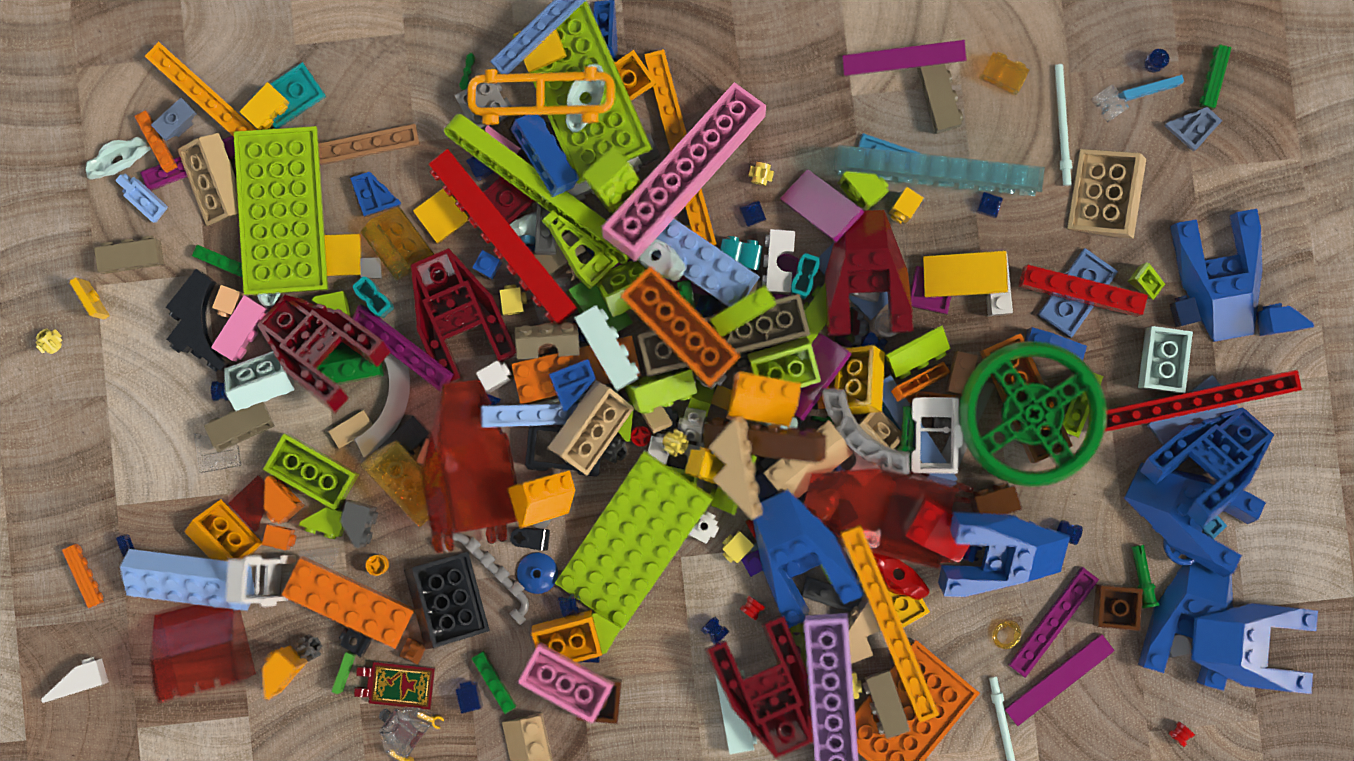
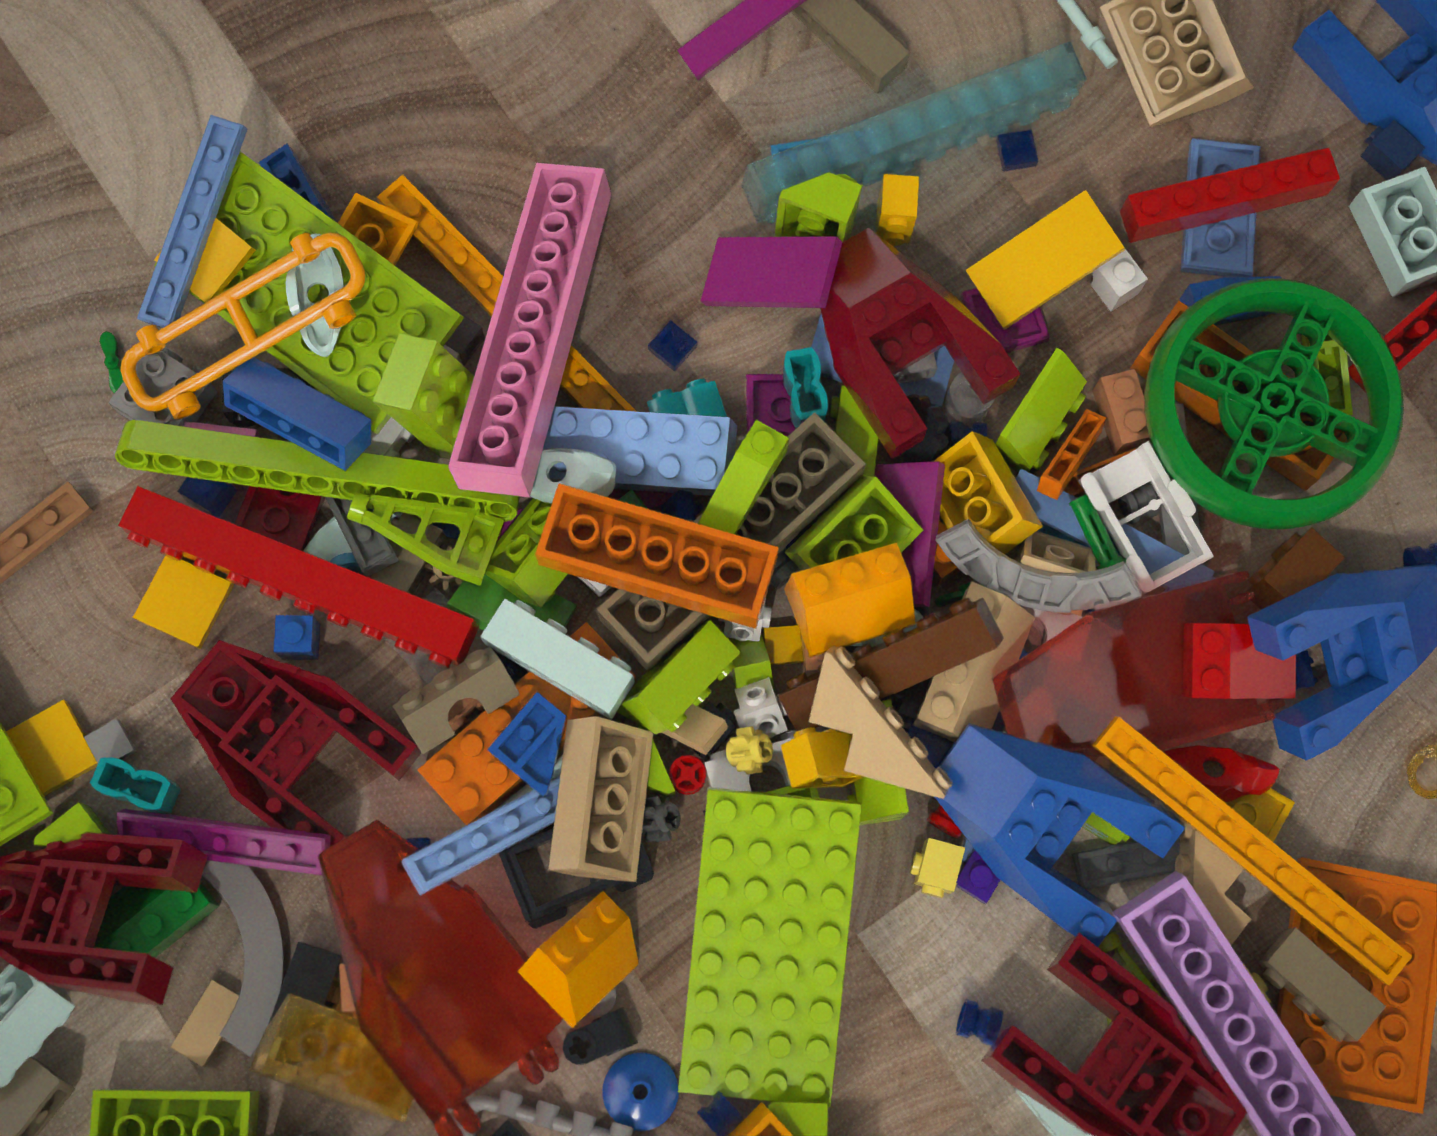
camera: 30 degrees left, 10 degrees down
(372, 195) = (53, 627): blue wing -> none
(396, 242) = (127, 680): clear yellow slope -> none
(494, 376) = (400, 803): white brick -> none
(512, 300) = (367, 671): light yellow brick -> none
(711, 530) = (882, 863): white brick -> none
(752, 608) = (1018, 951): red wheel -> none
(761, 173) = (651, 278): light yellow gear -> none
(779, 243) = (737, 364): white arch -> none
(1146, 280) = (1306, 132): lime slope -> none

